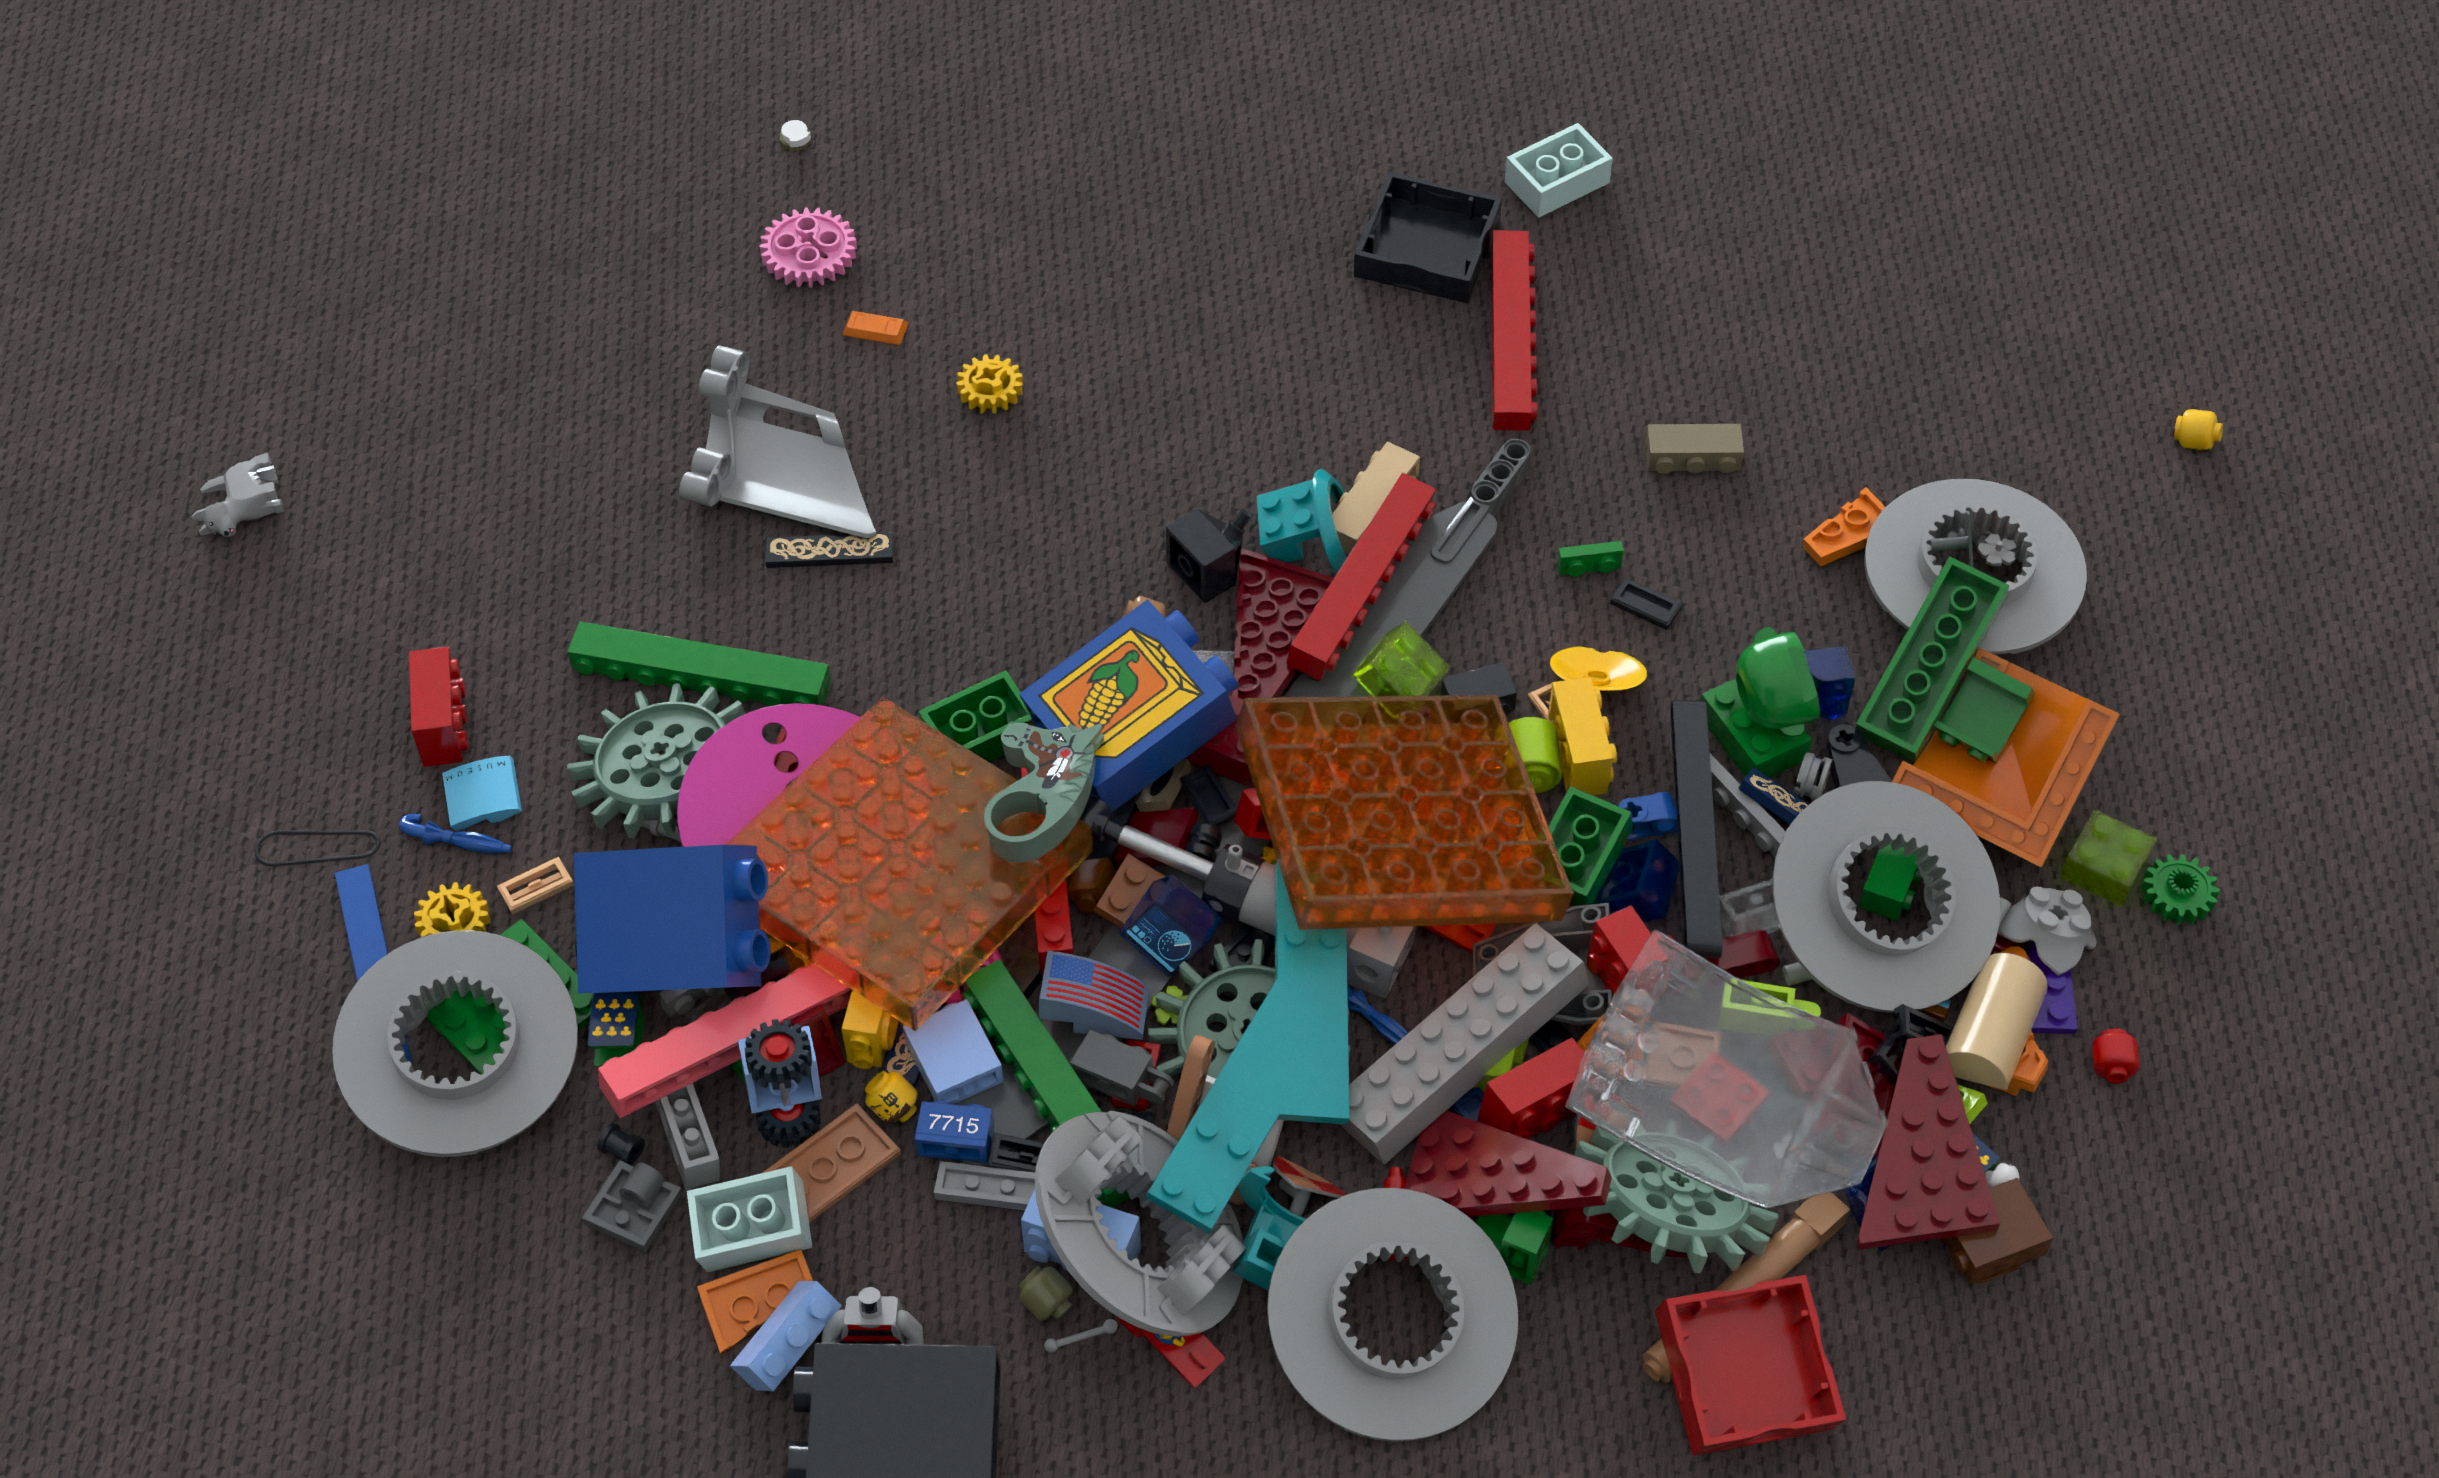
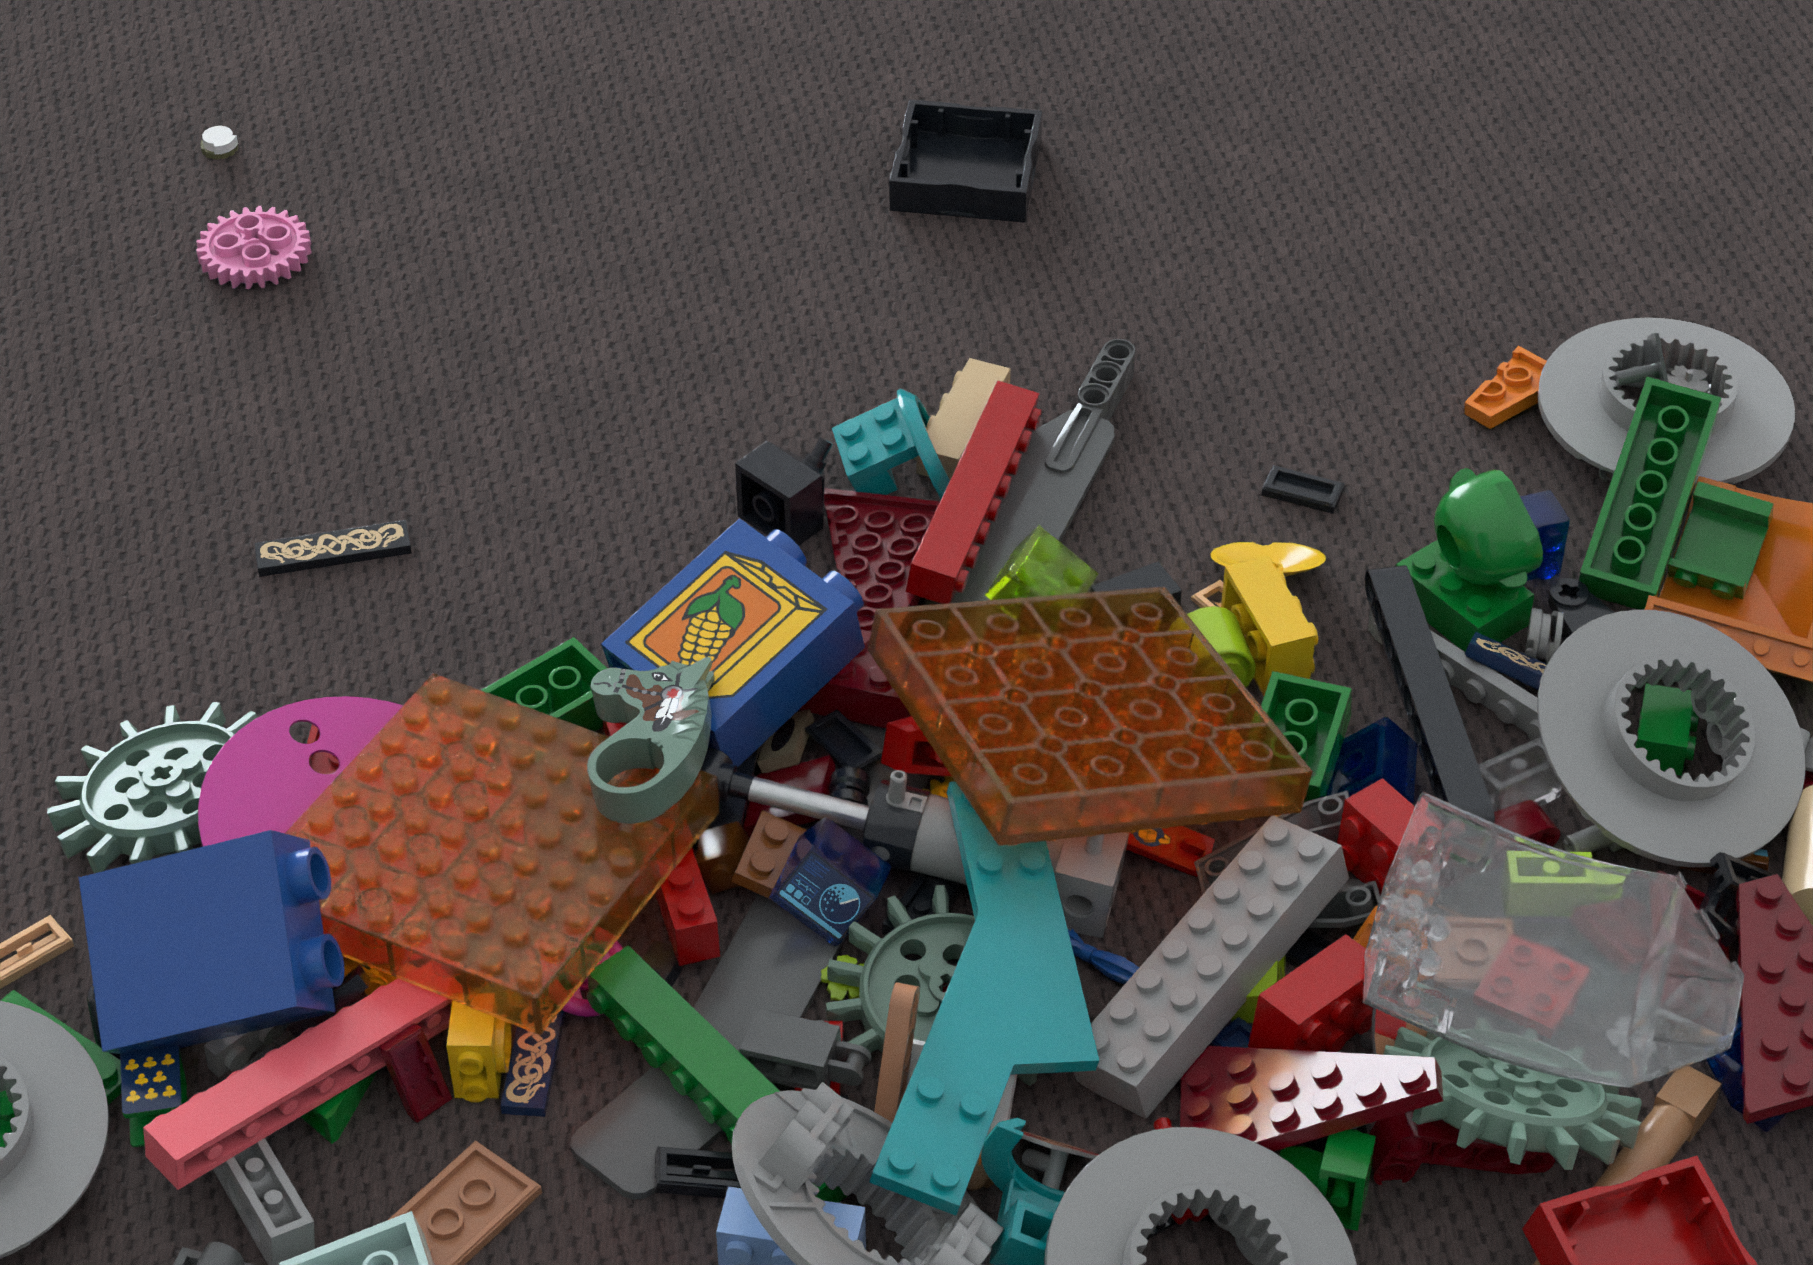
camera: 10 degrees left, 10 degrees down
(620, 1144) = (180, 1228): black bush -> none
(697, 666) = (190, 683): green brick -> none
(768, 464) = (245, 468): light grey panel -> none
(782, 1081) = (380, 1115): brick -> none
(875, 328) = (347, 319): orange tile -> none
(891, 1097) = (519, 1125): yellow head -> none
(954, 1054) = (589, 1064): light blue brick -> none
(954, 1131) = (607, 1152): blue brick -> none
(984, 1185) = (657, 1212): light grey plate -> none
(989, 383) = (493, 357): yellow gear -> none
(1092, 996) = (750, 973): sand blue slope -> none
(1511, 331) = (1083, 241): red brick -> none
(1558, 170) = (1096, 81): light aqua brick -> none
(1589, 558) = (1228, 449): green plate -> none
(1651, 815) = (1372, 700): blue piece -> none
(1694, 447) = (1317, 328): dark tan brick -> none

